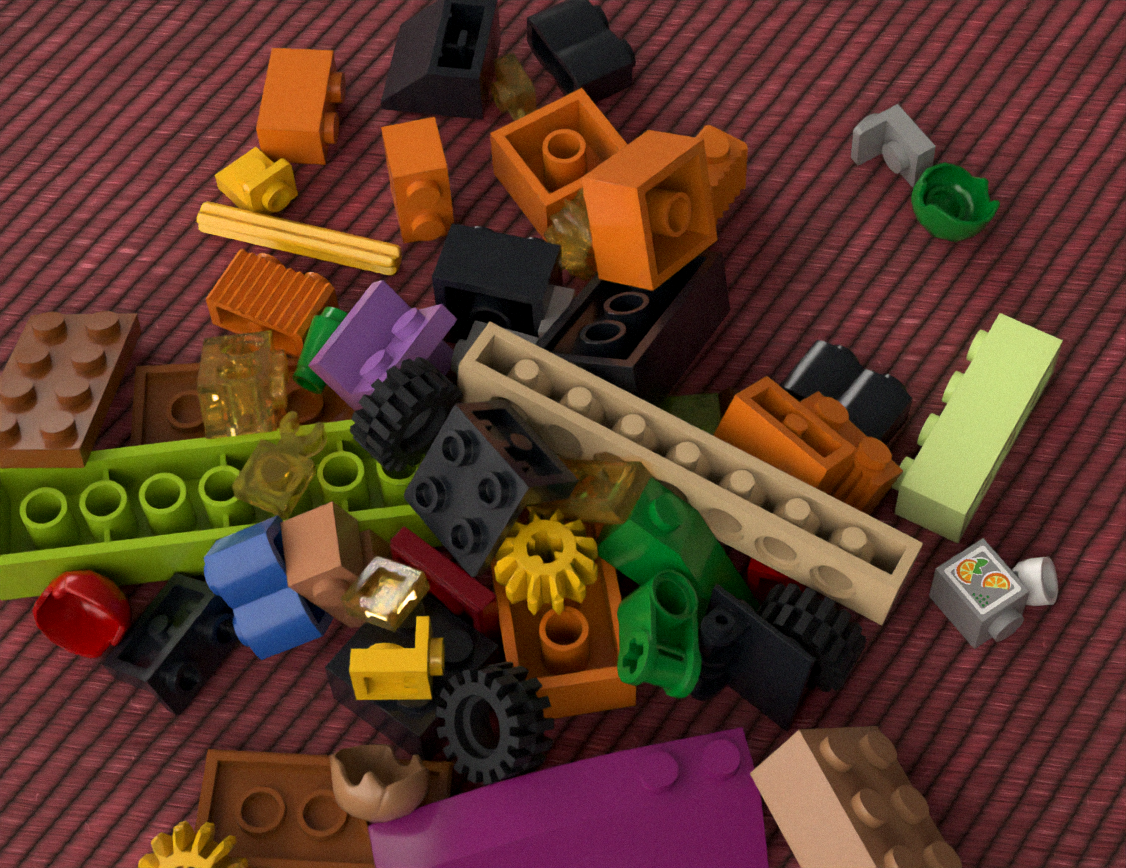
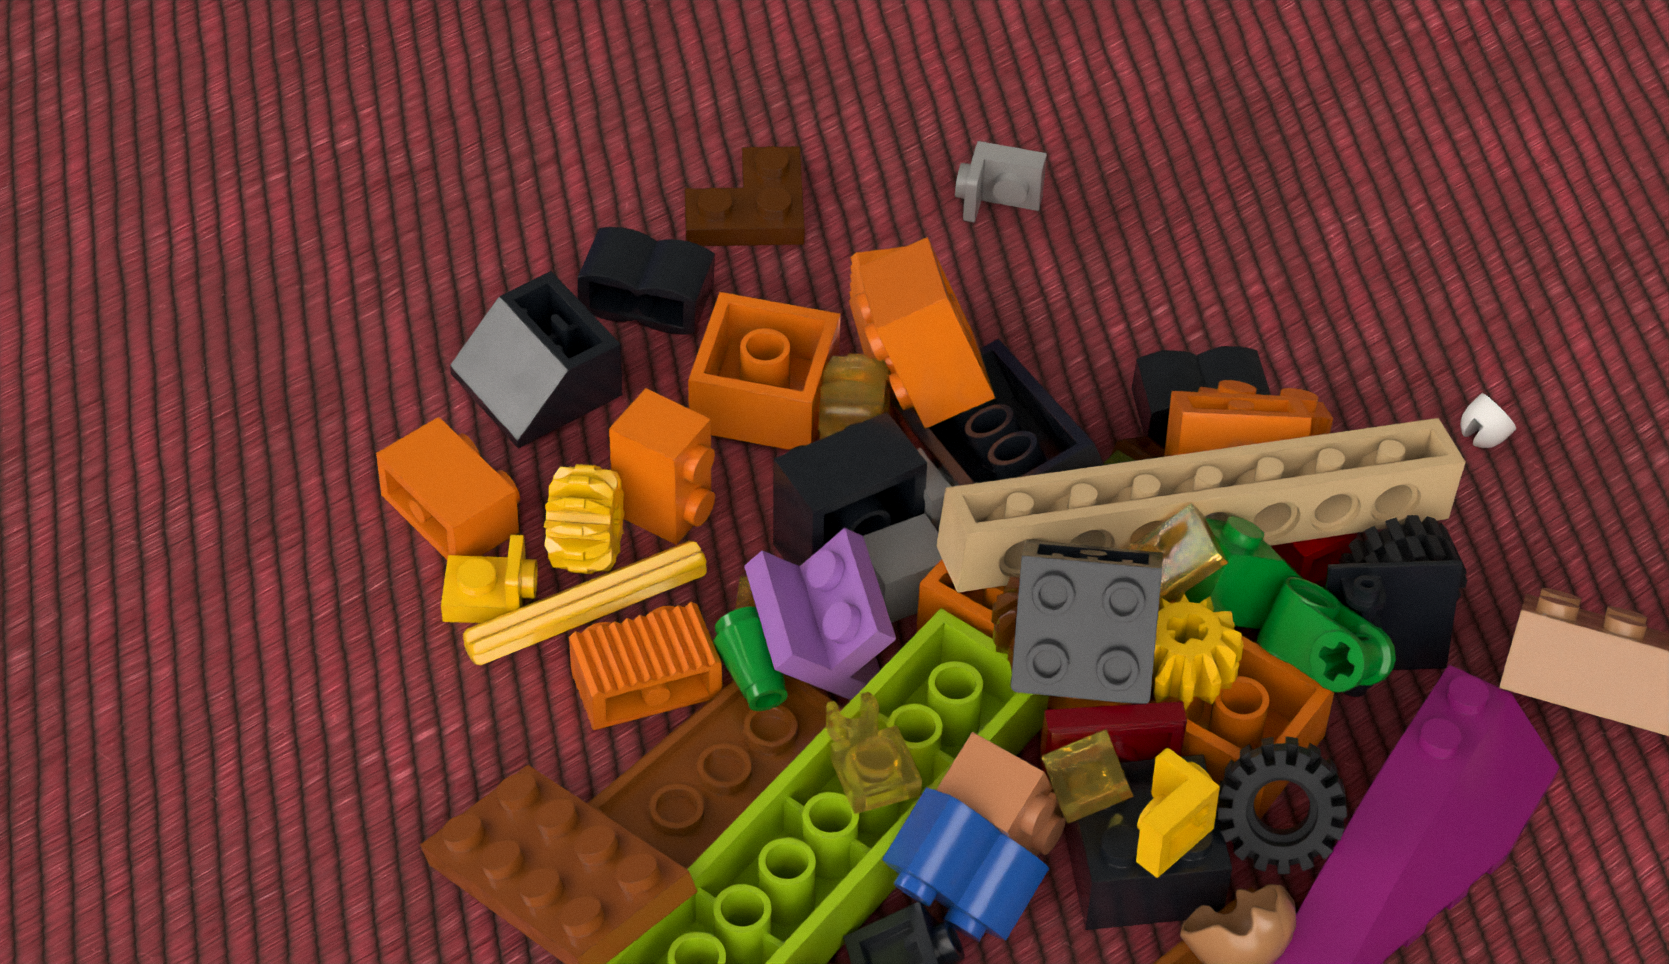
camera: 50 degrees left, 10 degrees down
(241, 384) = (736, 728): clear yellow brick -> none
(341, 181) = (584, 519): none -> yellow gear
(404, 413) = (947, 621): black tyre -> none
(513, 88) = (641, 346): clear yellow plate -> none
(724, 57) = (761, 212): none -> reddish brown plate
(952, 202) = (1099, 195): green hair -> none
(976, 427) = (1316, 330): yellowish green brick -> none
(980, 594) = (1487, 453): light grey brick -> none

